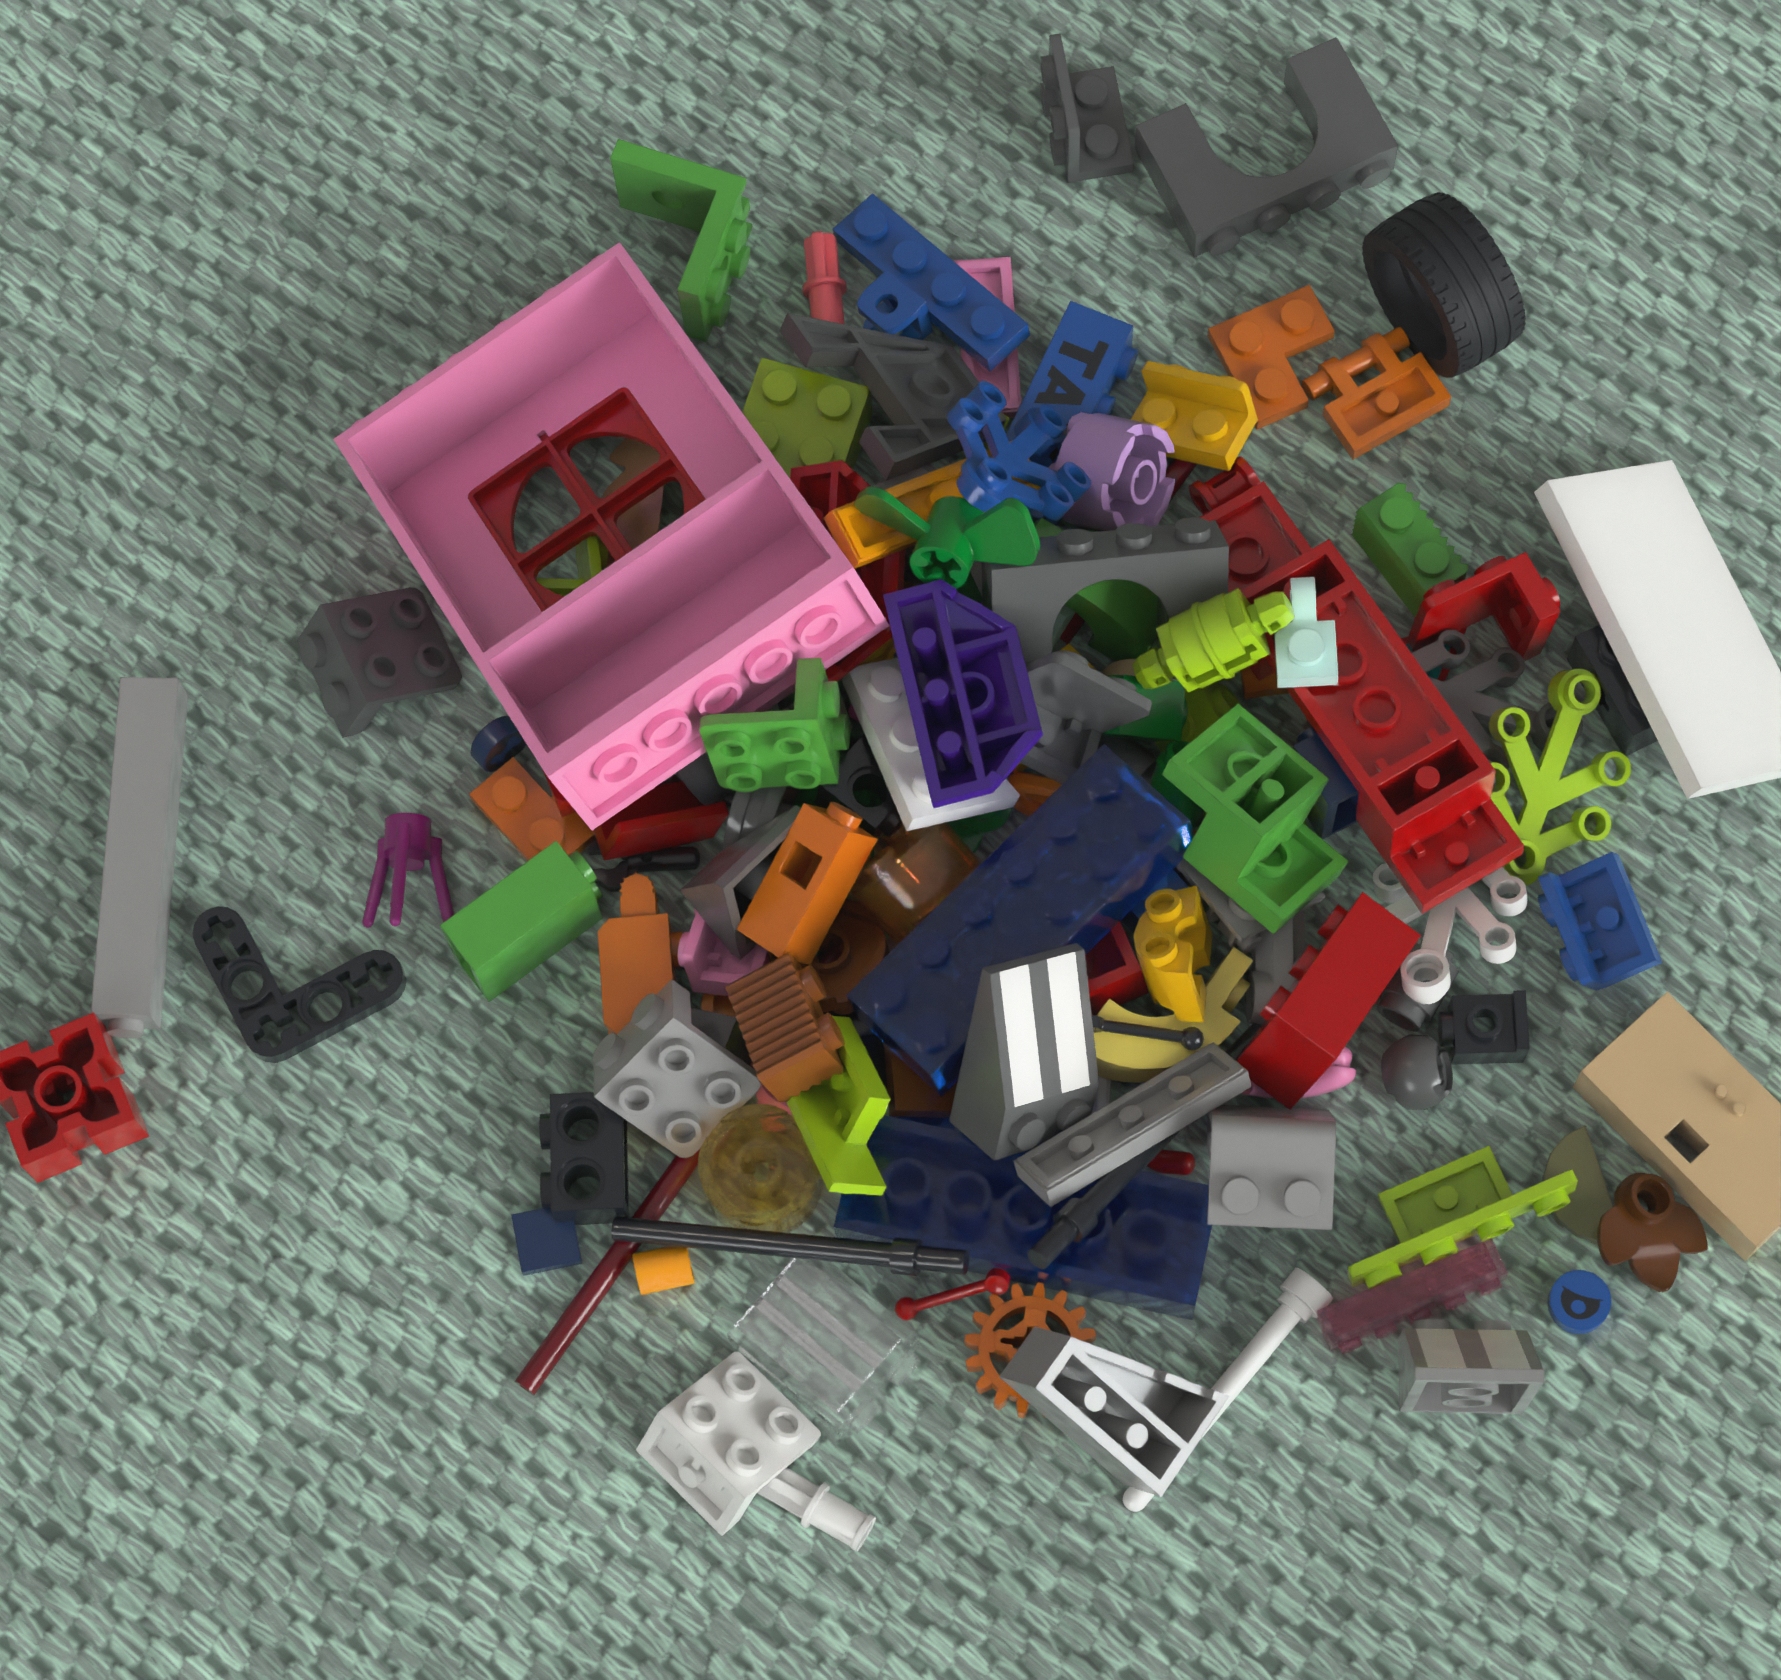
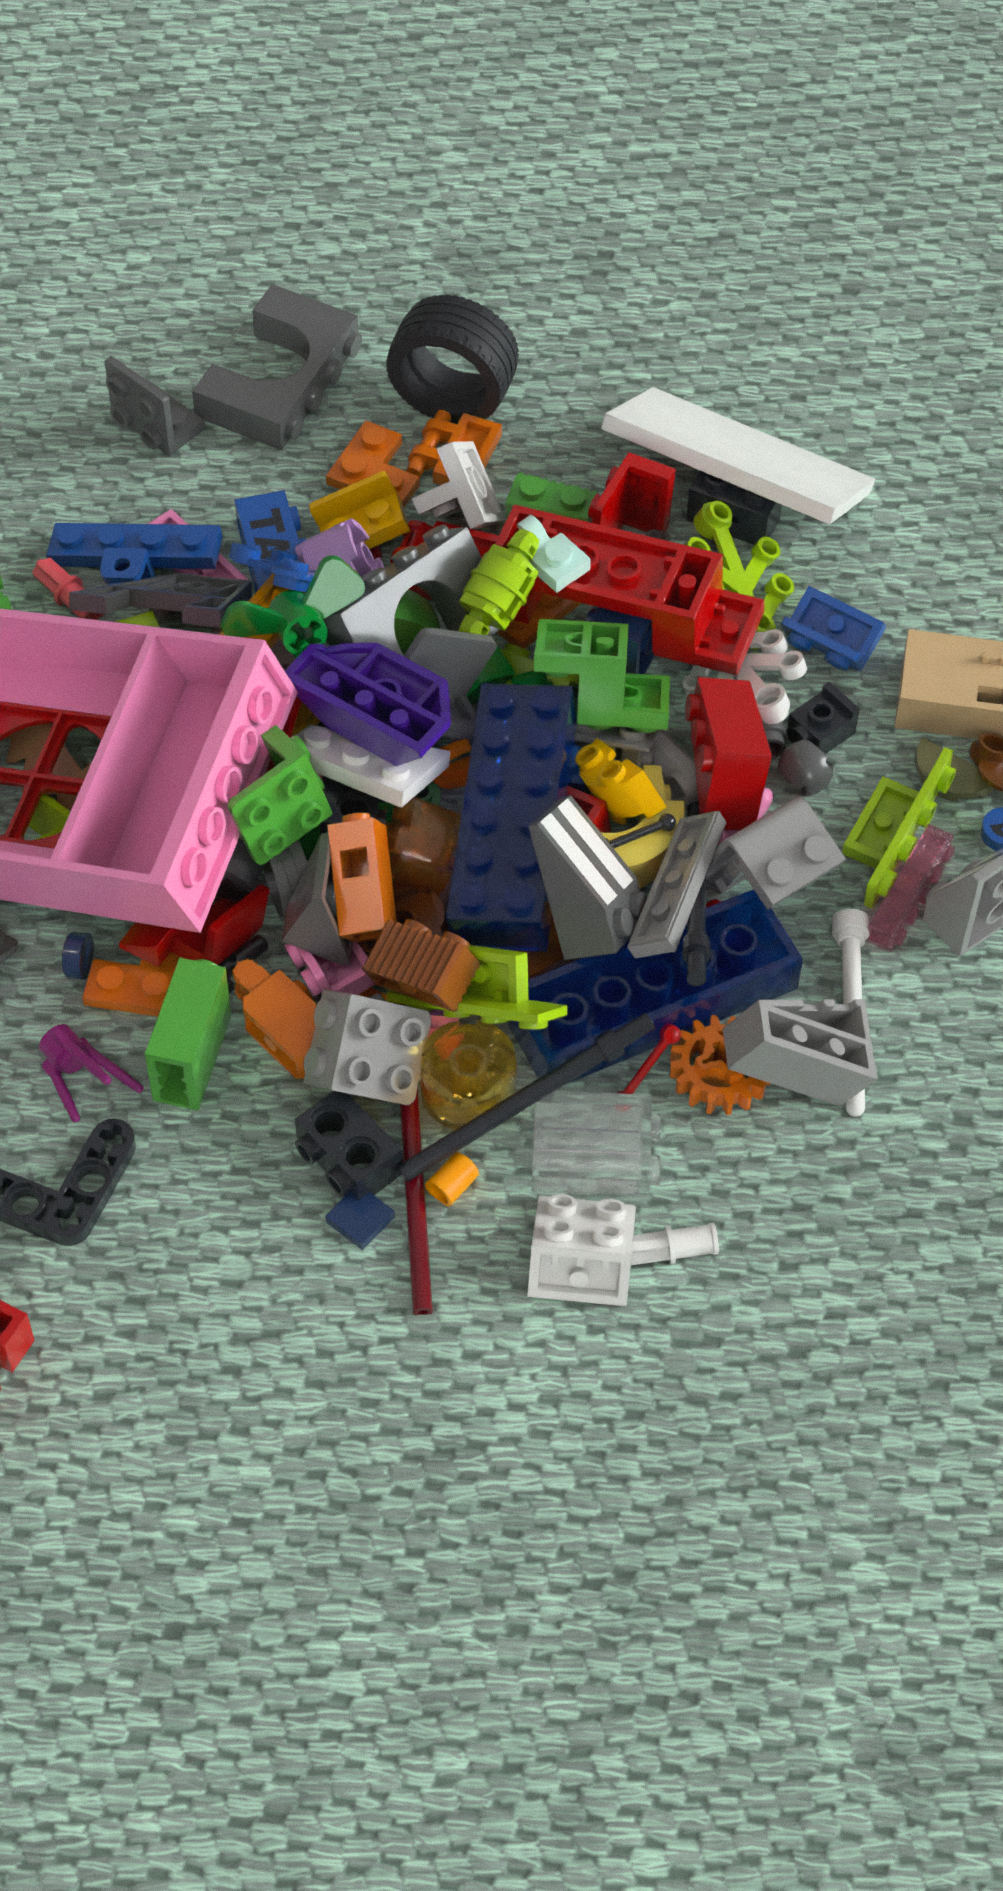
camera: 45 degrees left, 15 degrees down
(1324, 464) = (466, 491): none -> white bracket

